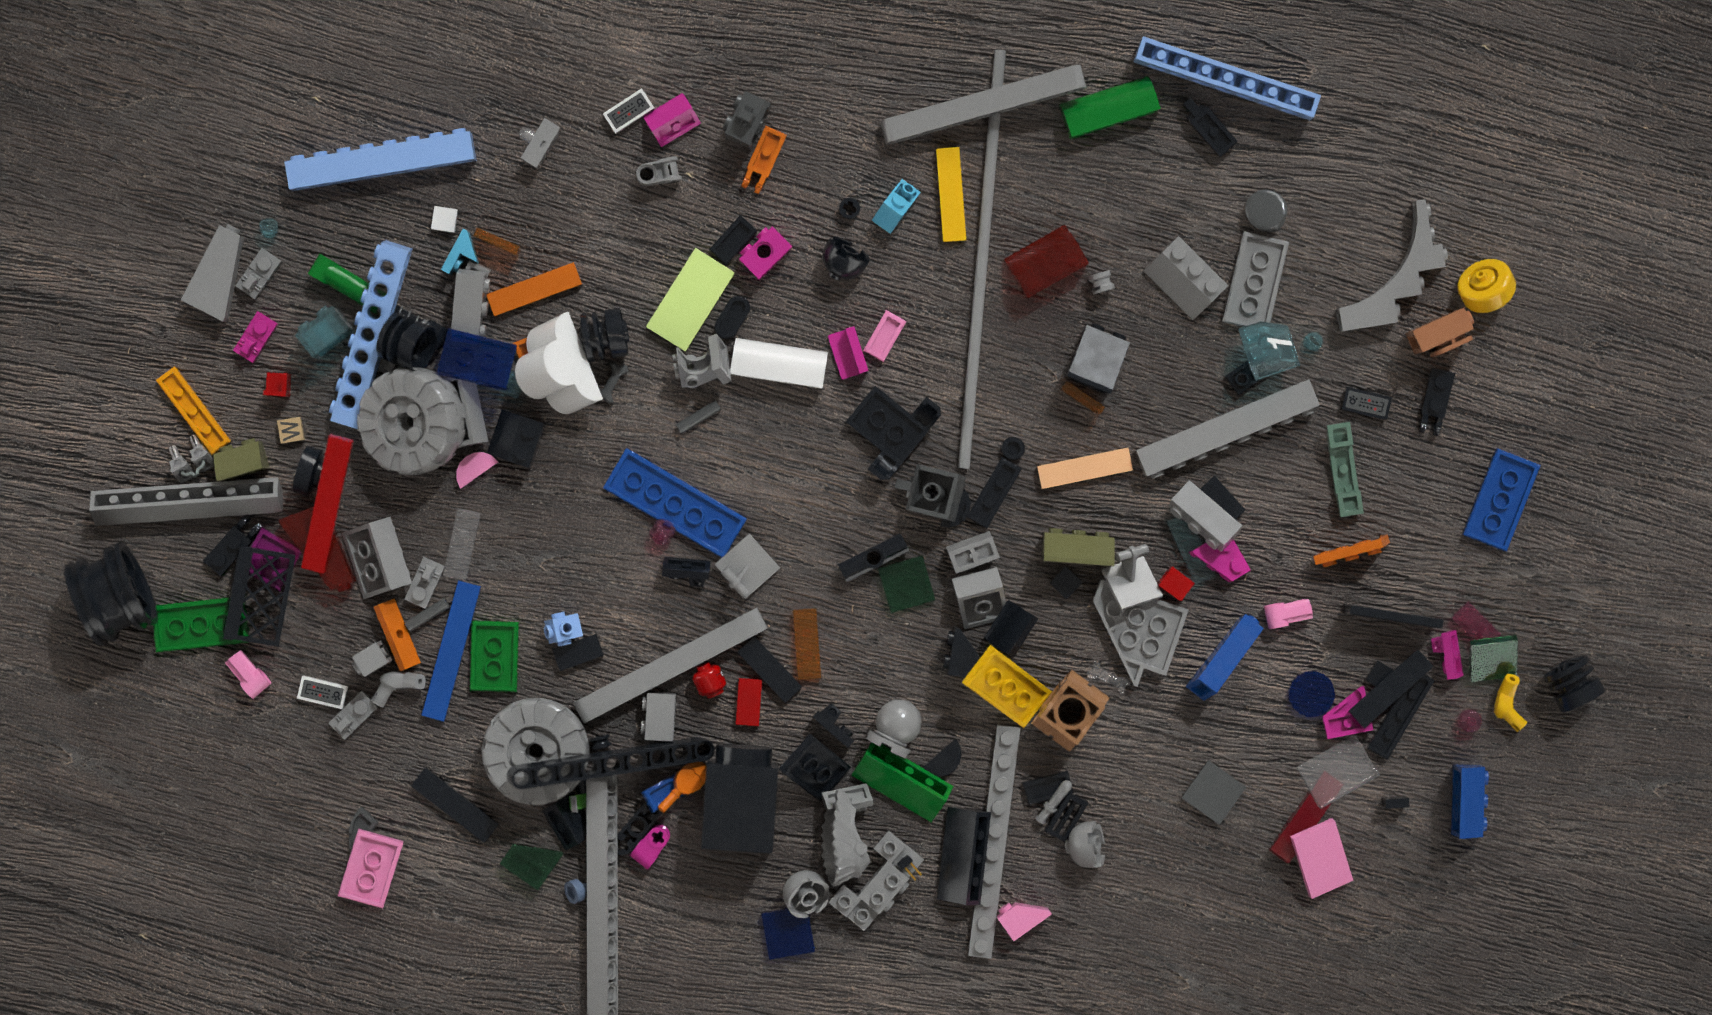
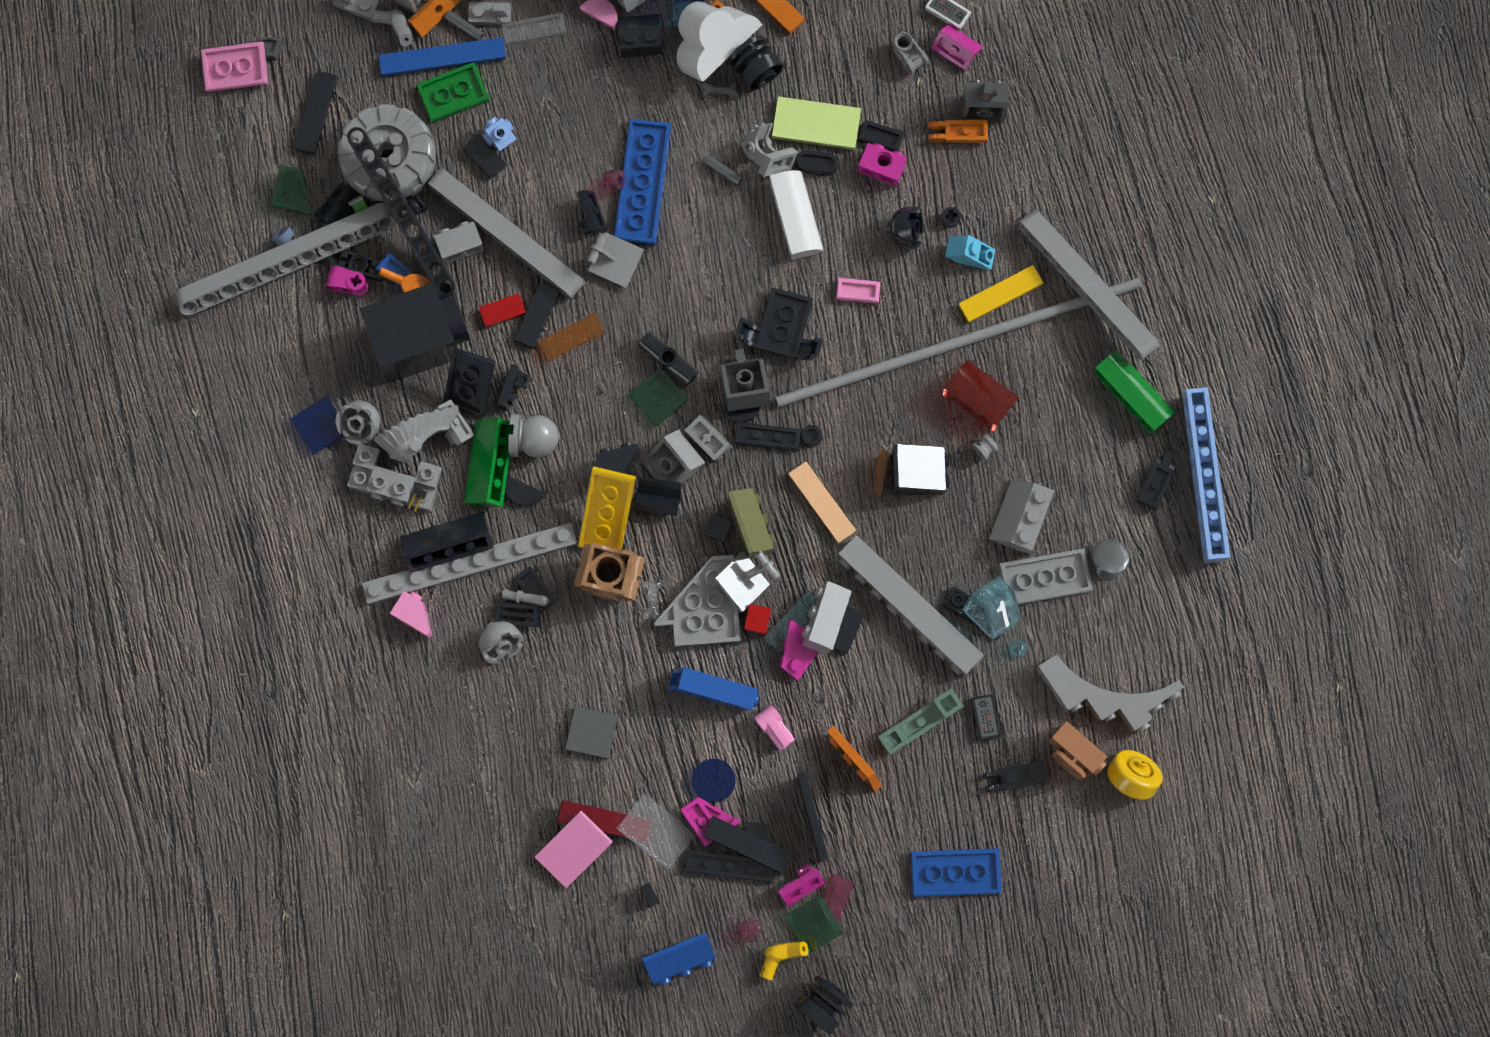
camera: 70 degrees right, 10 degrees down
(709, 680) = (506, 268): red head -> none
(848, 353) = (830, 267): dark pink panel -> none

